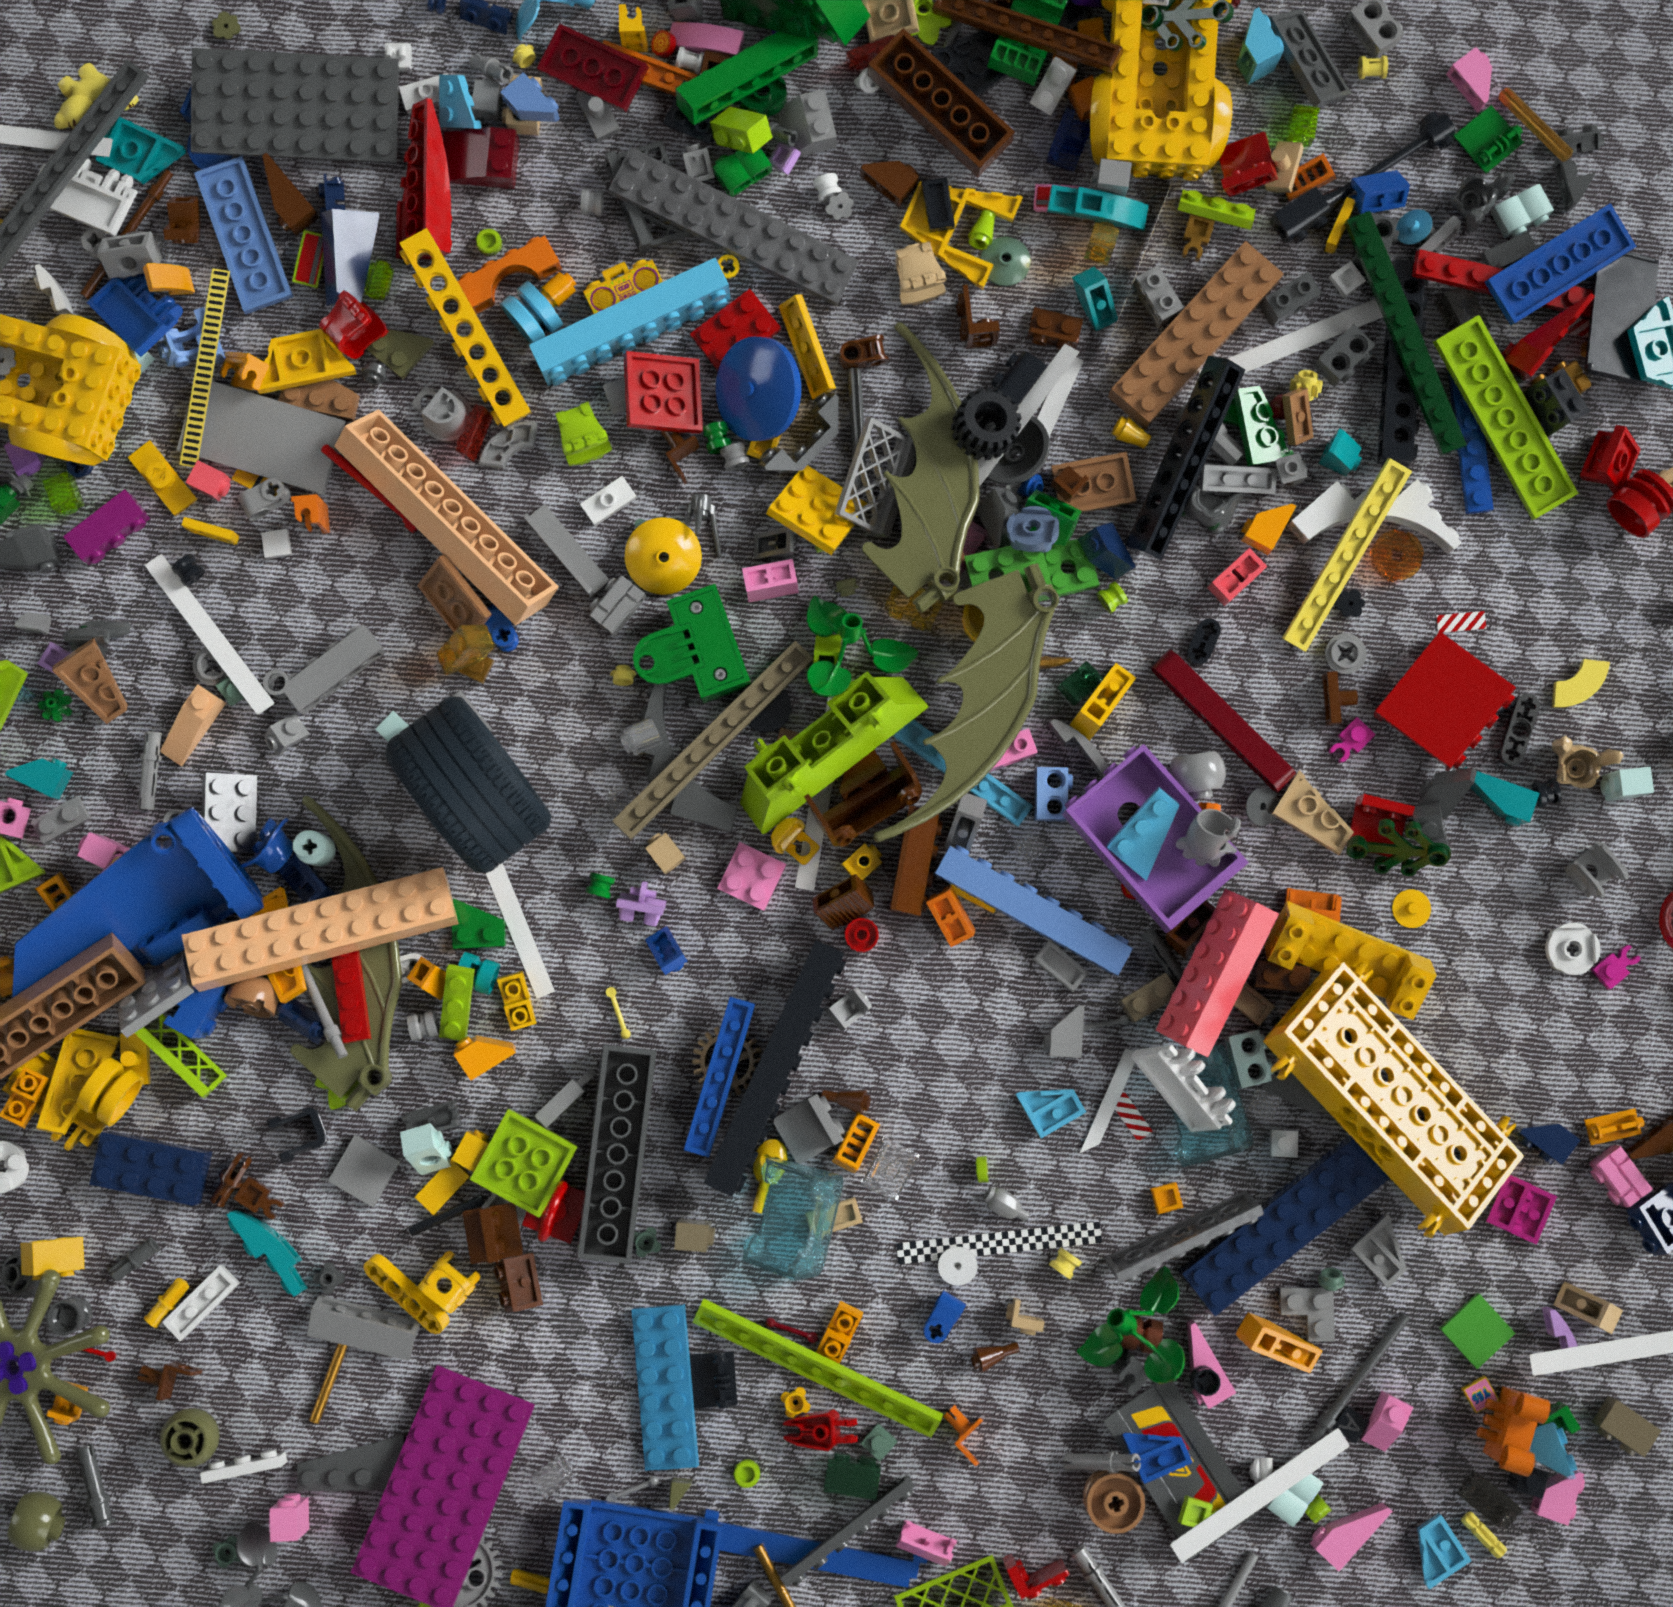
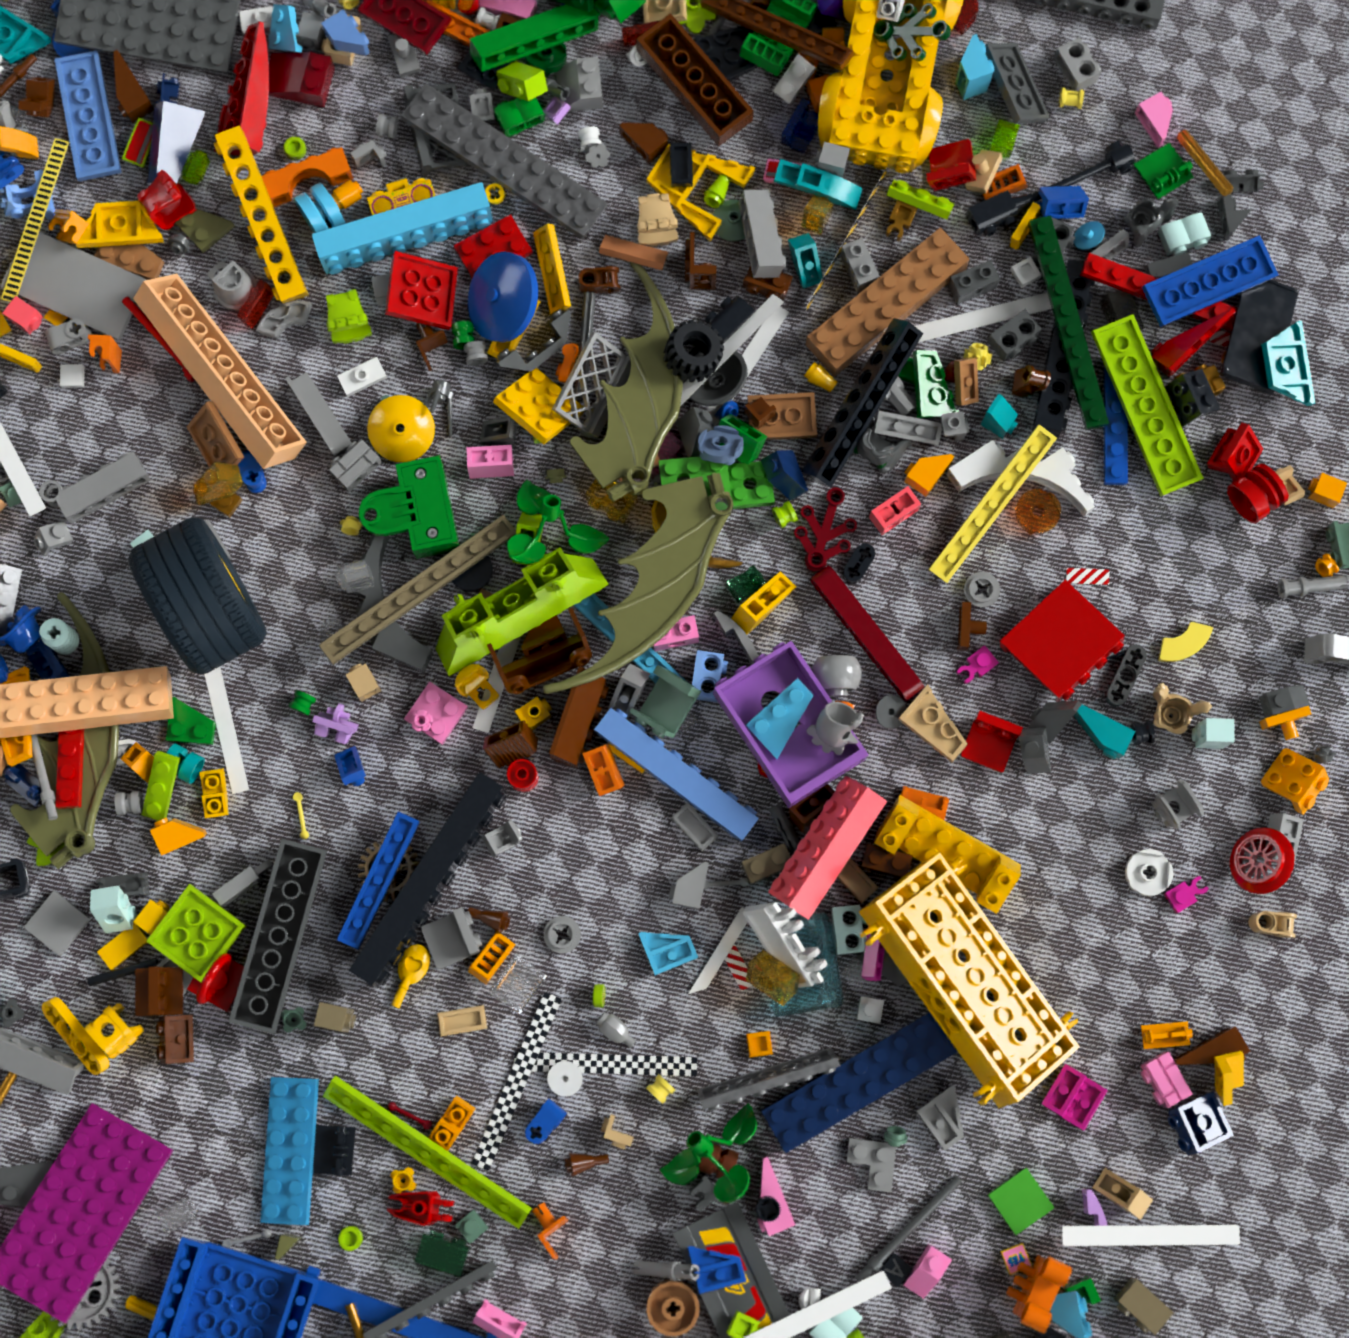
camera: 10 degrees right, 5 degrees down
(572, 237) = (366, 152): none -> light grey bracket
(738, 881) = (427, 720): none -> bright pink plate
(795, 1220) = (427, 1017): clear light blue windscreen -> none
(839, 462) = (570, 354): none -> orange plate
(897, 315) = (633, 252): none -> nougat tile
(904, 1275) = (516, 1081): none -> sticker
(933, 1119) = (551, 937): none -> light grey gear
(1011, 832) = (667, 703): none -> sand green panel
(1041, 274) = (761, 233): none -> light grey brick
(1159, 612) = (824, 534): none -> dark red plant
(1173, 1124) = (772, 977): none -> clear yellow brick
(1277, 1343) = (840, 1186): light orange slope -> none
(1281, 1090) = (873, 961): none -> dark pink piece
(1354, 598) = (996, 543): black plant -> none
(1369, 406) = (1029, 381): none -> reddish brown piece
(1411, 908) = (1011, 819): yellow piece -> none
(1430, 853) = (1032, 769): dark green plant -> none
(1549, 1139) = (1106, 1038): dark blue slope -> none

